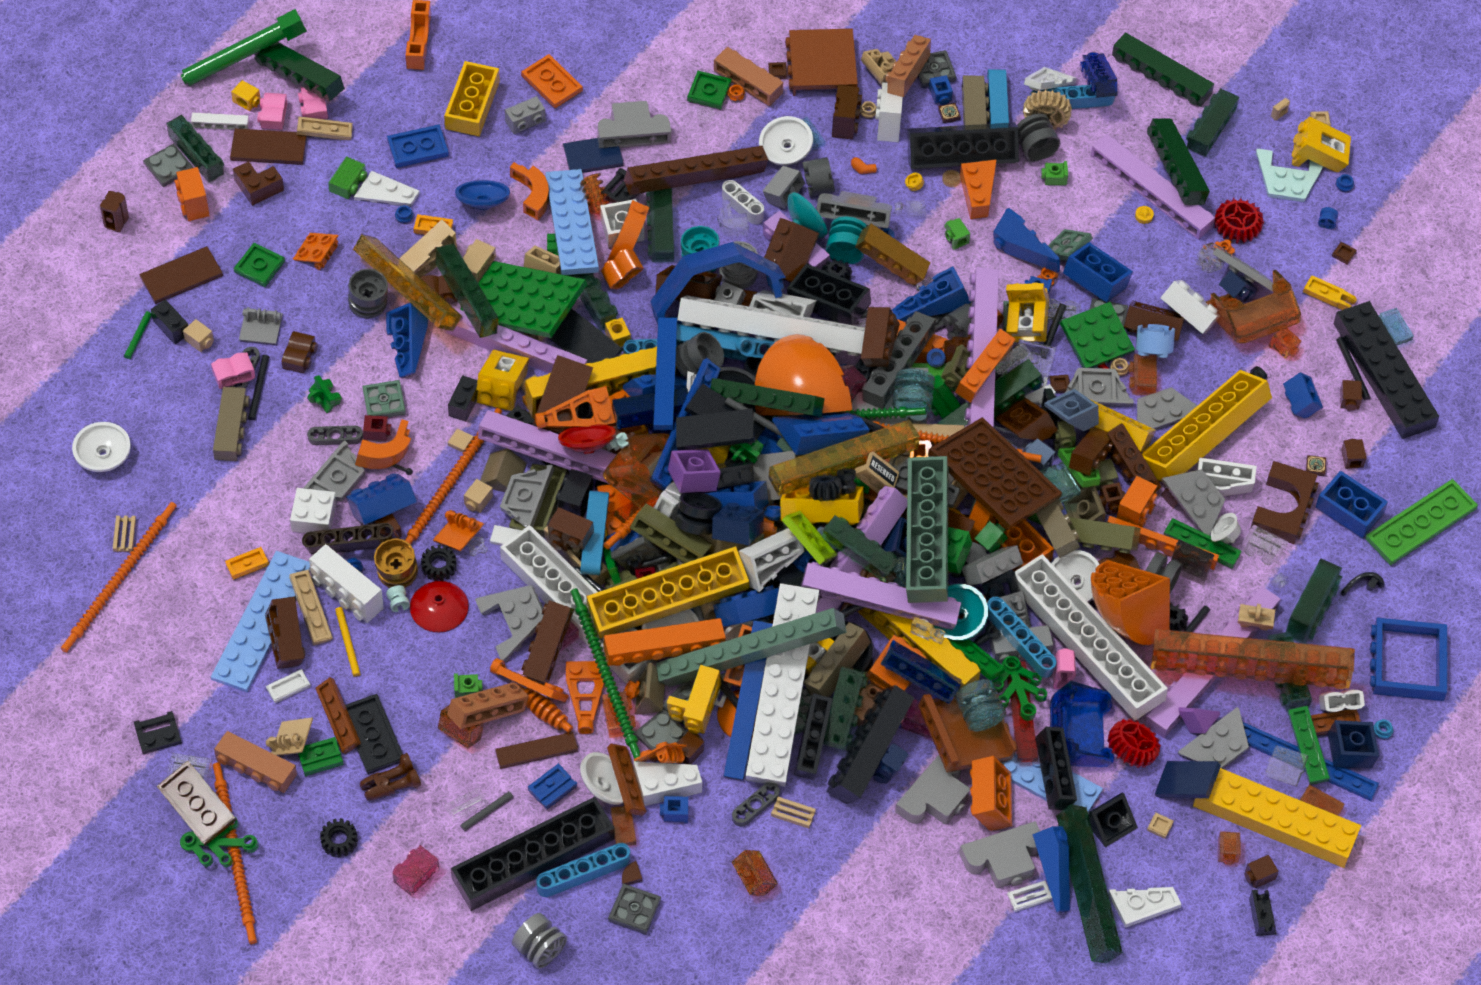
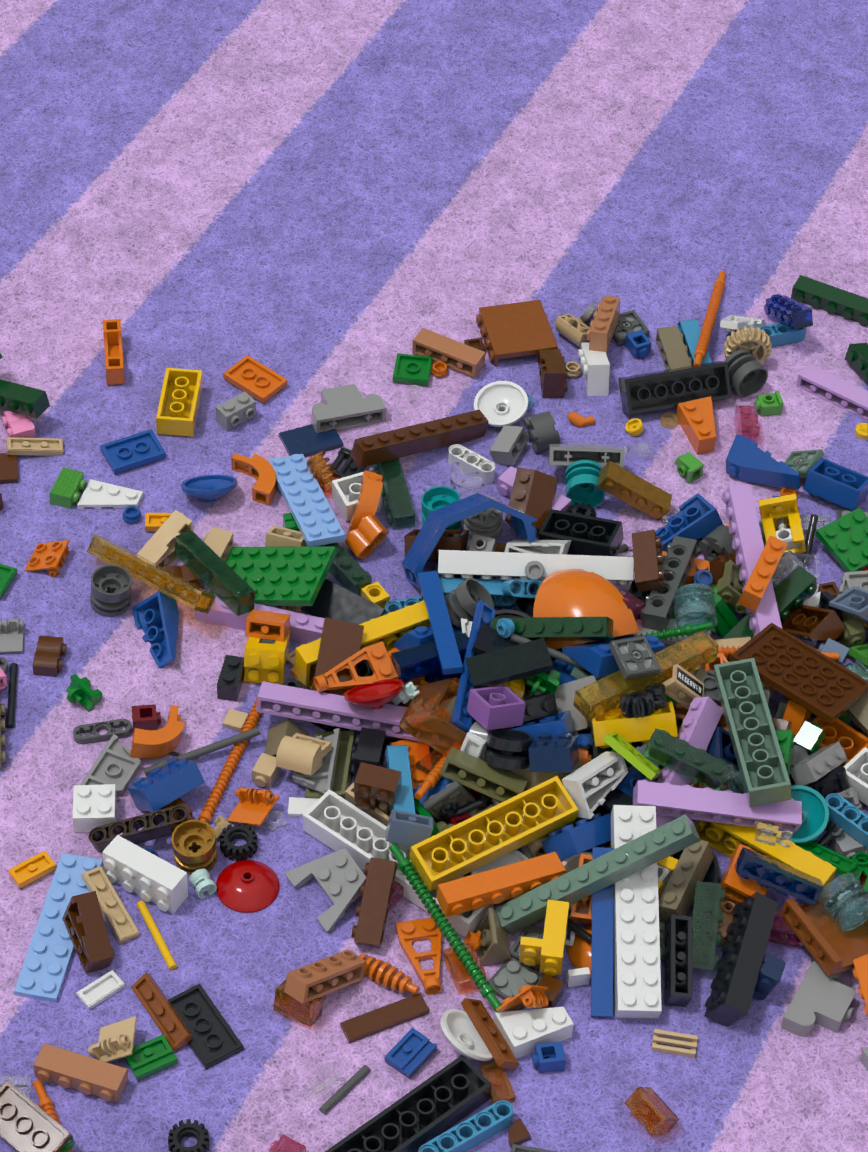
camera: 10 degrees left, 10 degrees down
(380, 782) = (223, 1076): reddish brown piece -> none
(384, 399) = (147, 689): sand green piece -> none
(425, 468) = (208, 749): none -> dark grey bar
(427, 542) = (221, 823): none -> tan tile
(466, 684) = (294, 959): bright green brick -> none
(498, 667) = (386, 952): orange plate -> none
(506, 351) = (267, 625): none -> orange brick
(511, 486) = (302, 753): none -> tan brick
(591, 576) = (408, 828): none -> sand blue brick
(719, 738) = (578, 977): none -> white tile
(721, 391) = (505, 627): none -> dark azure plate
(755, 797) = (633, 1031): dark grey beam -> none
(768, 331) = (534, 570): none -> light grey tile
(805, 214) = (537, 458): teal dish -> none
(832, 441) = (634, 657): none -> dark grey piece
(898, 48) = (588, 312): none -> light grey tile
(949, 113) = (650, 364): tile -> none
(1019, 71) = (709, 320): none -> orange hose
(1024, 195) = (745, 422): none -> clear pink brick

